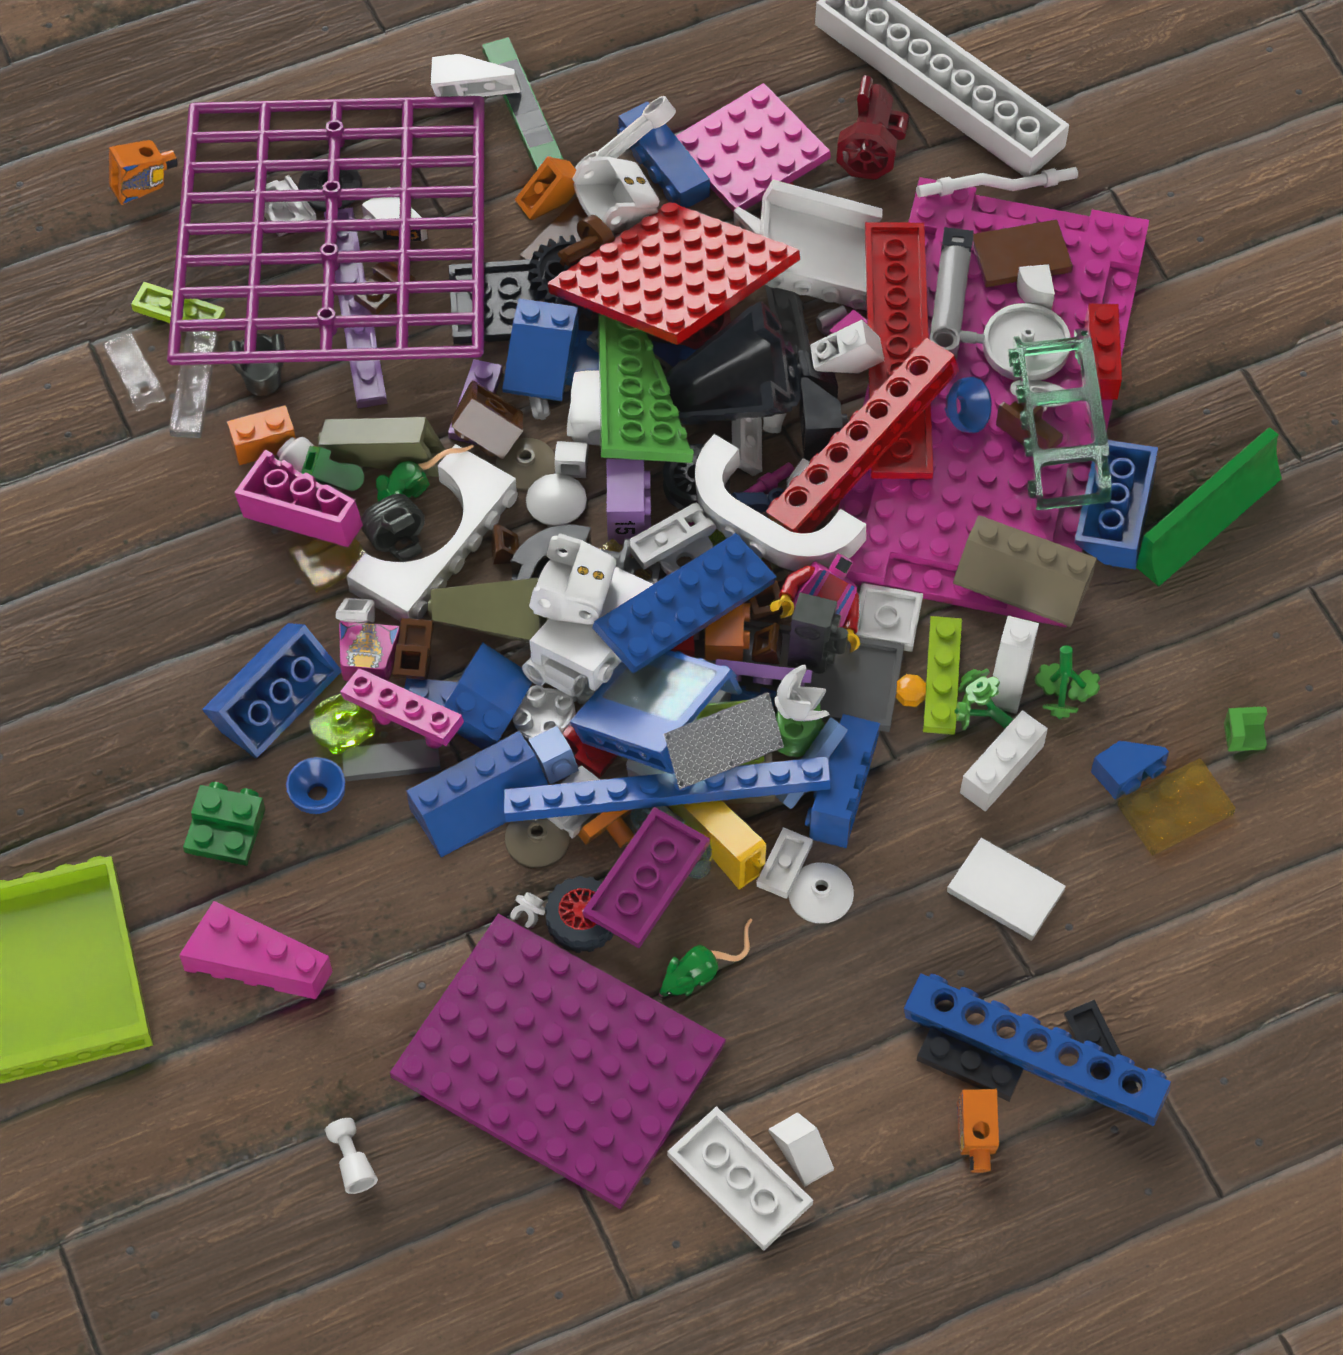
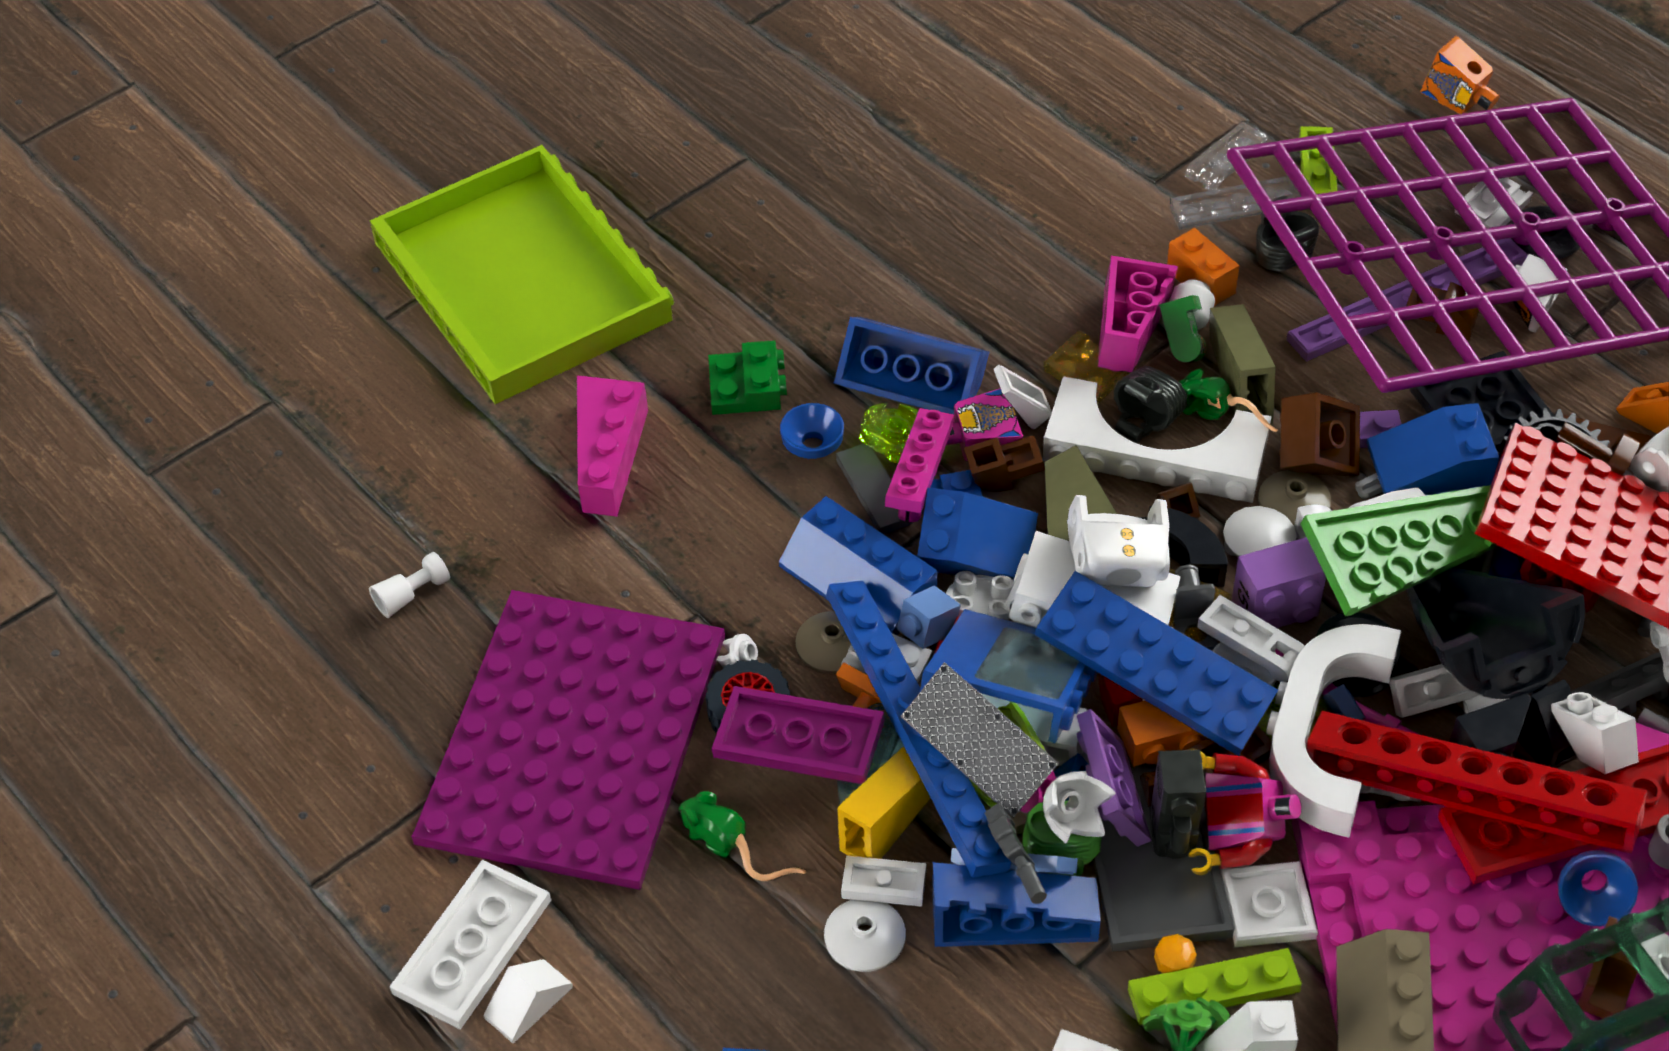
camera: 75 degrees right, 10 degrees down
(826, 749) = (1003, 831): none -> dark grey piece

